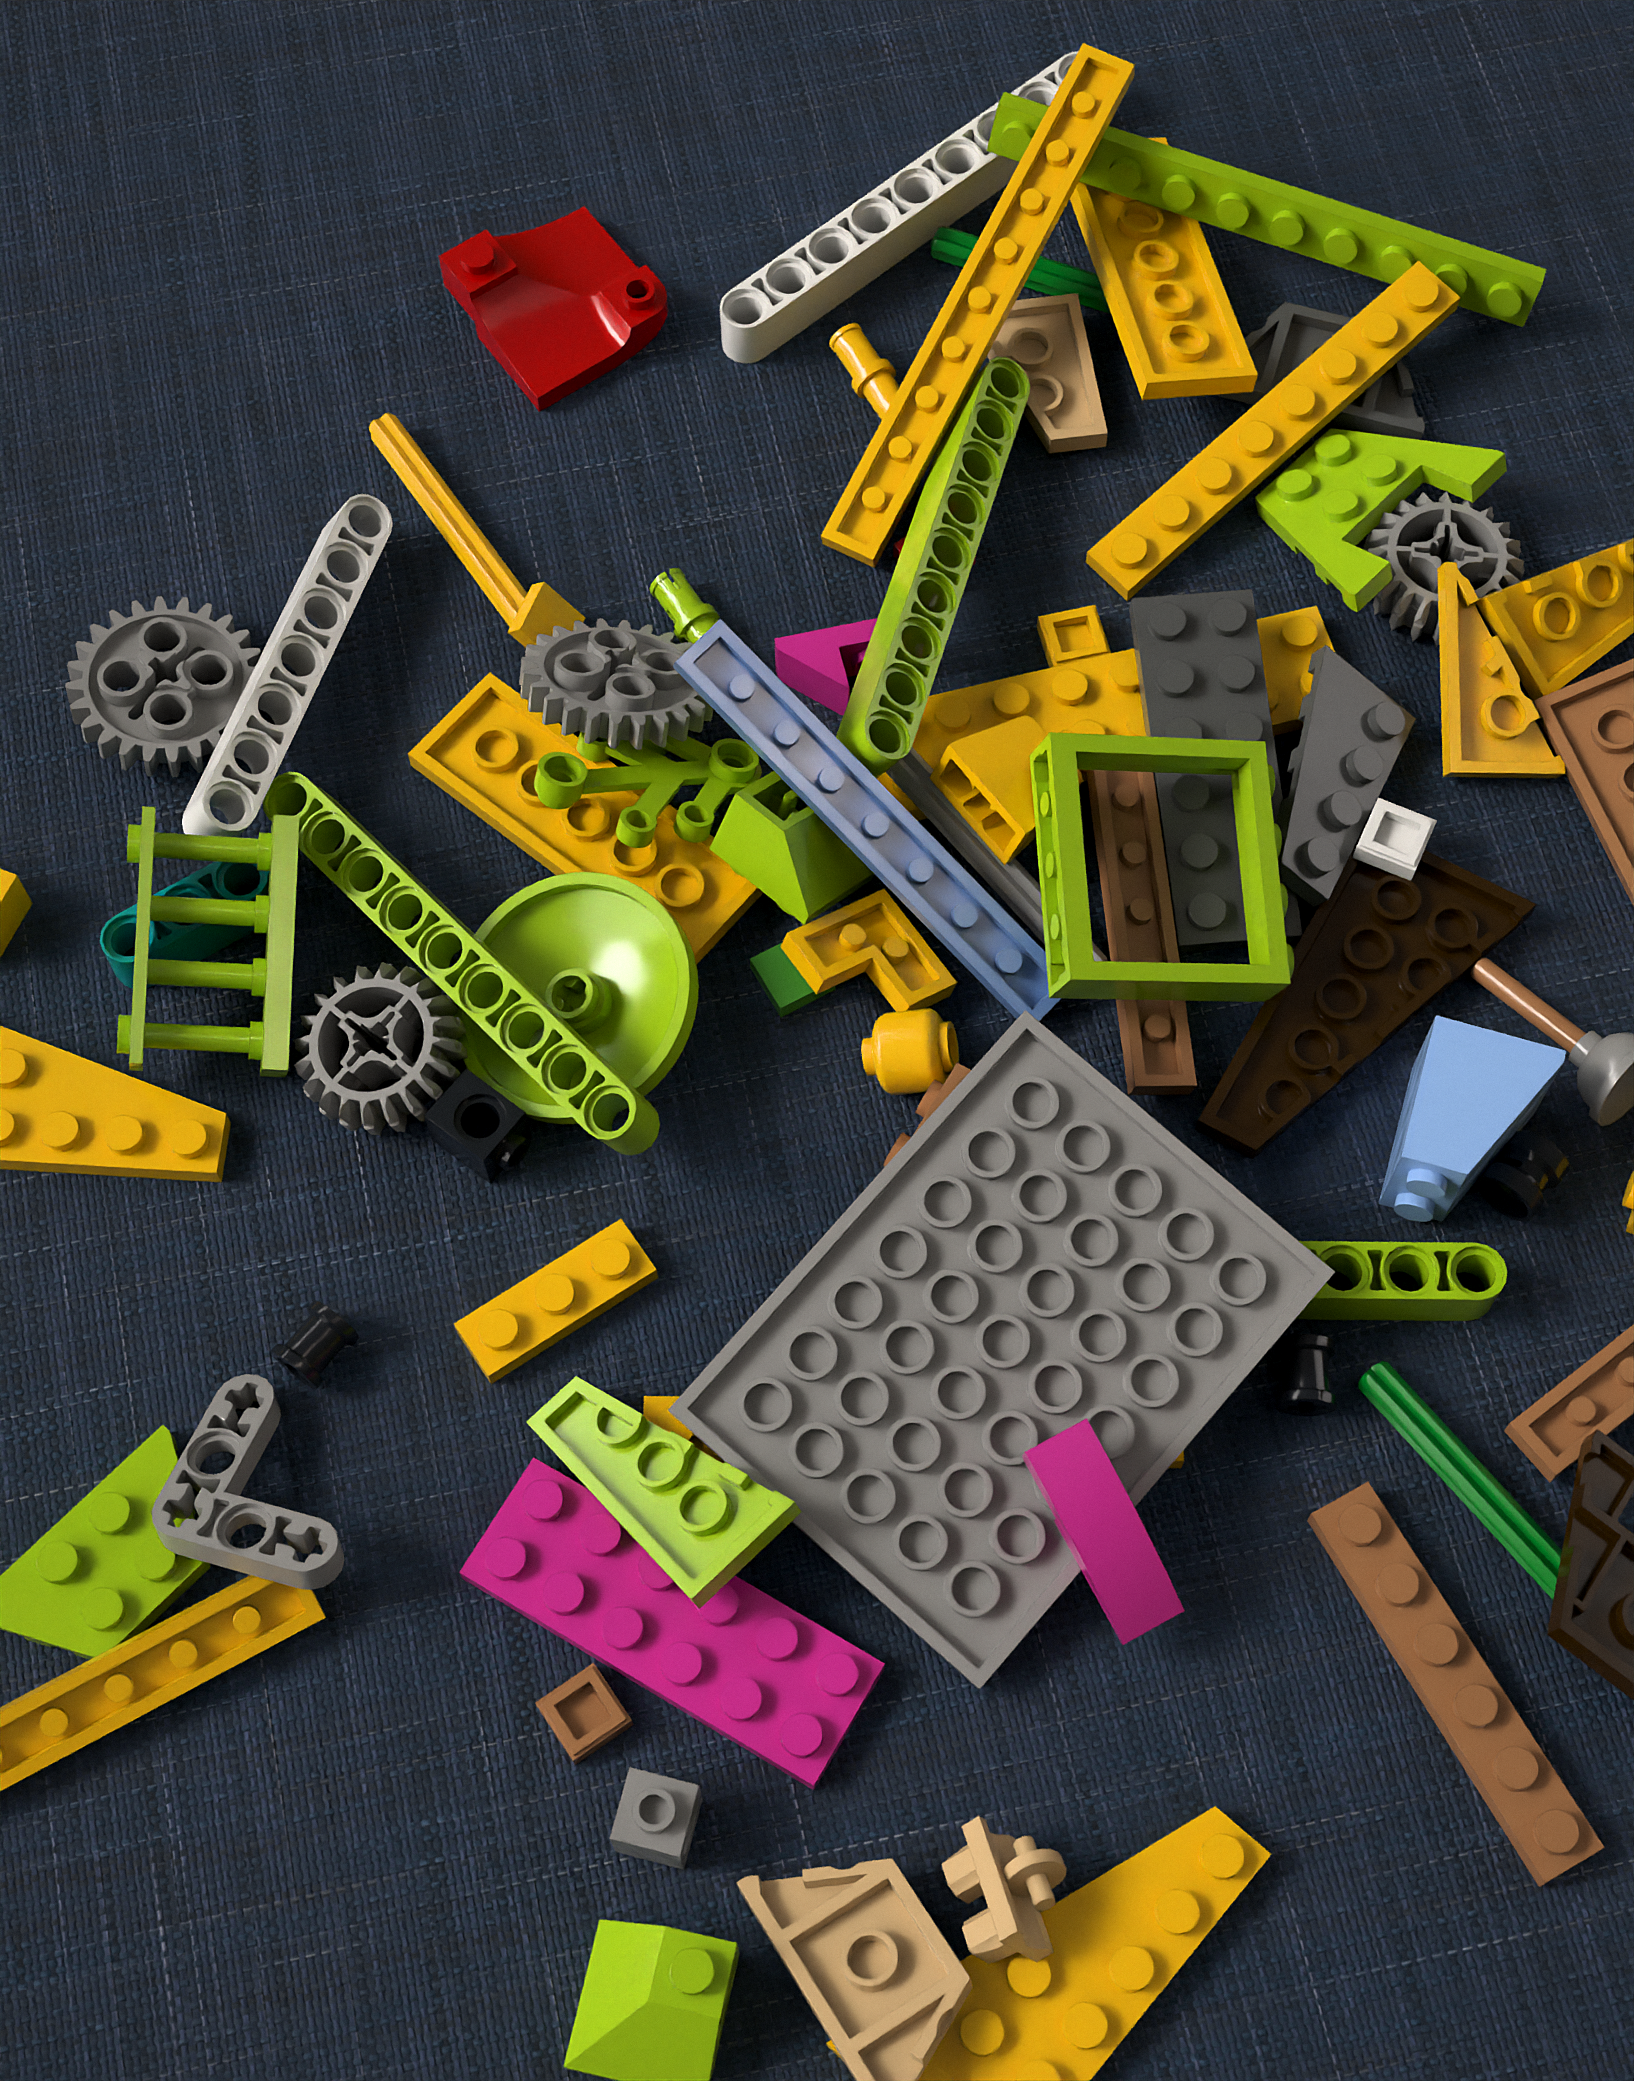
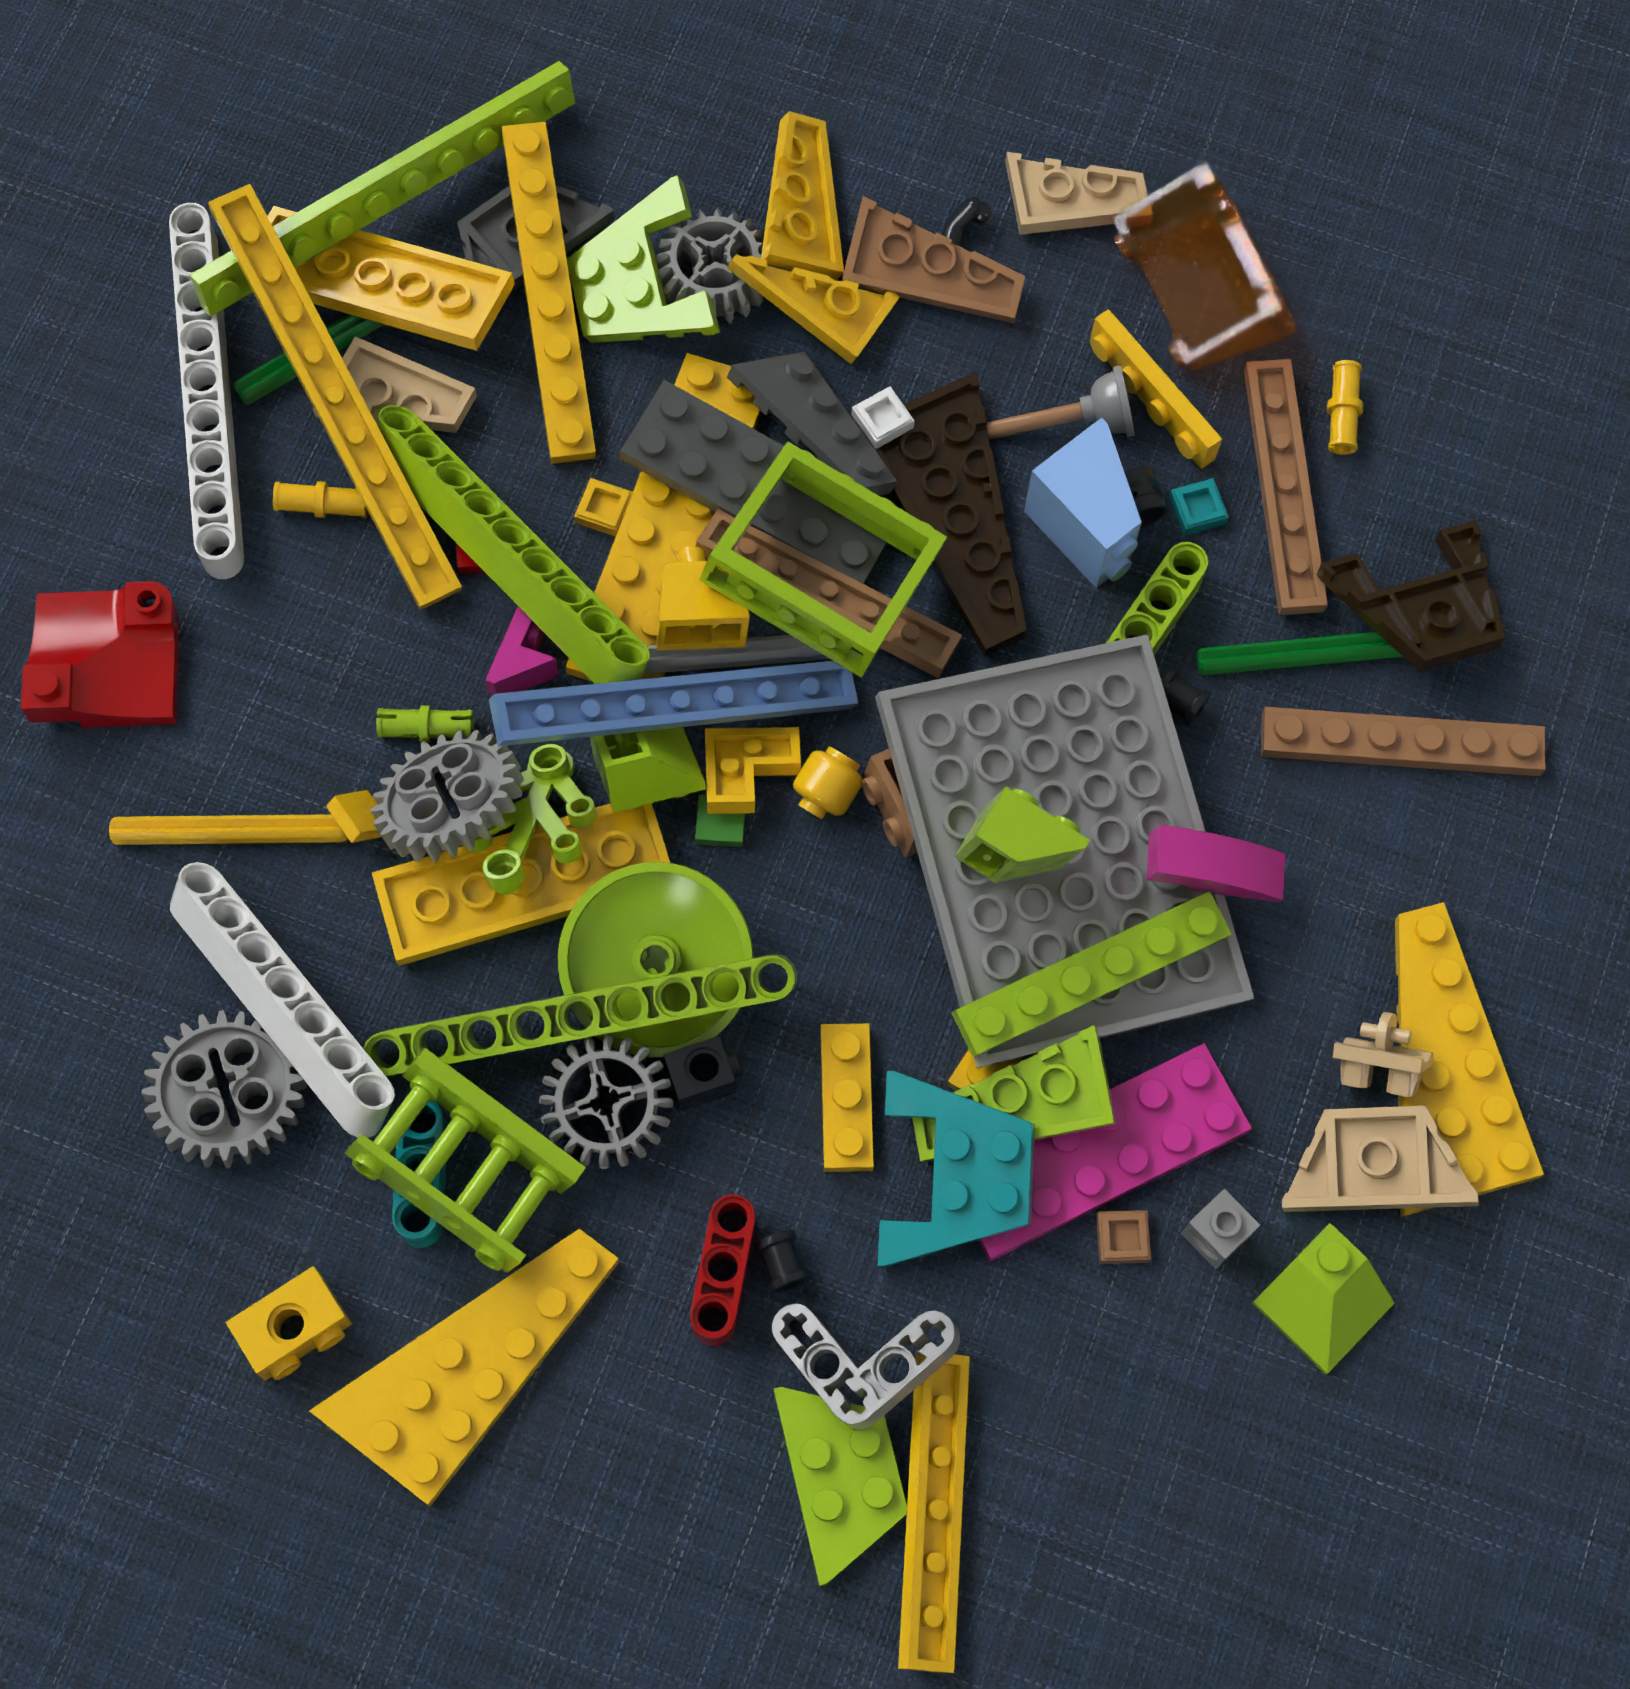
camera: 60 degrees left, 5 degrees up
(234, 1278) = (722, 1245): none -> red beam
(545, 1487) = (977, 1176): none -> teal wing
(868, 1468) = (1090, 974): none -> lime plate
(942, 1262) = (1019, 839): none -> lime slope
(1571, 1254) = (1198, 507): none -> teal tile

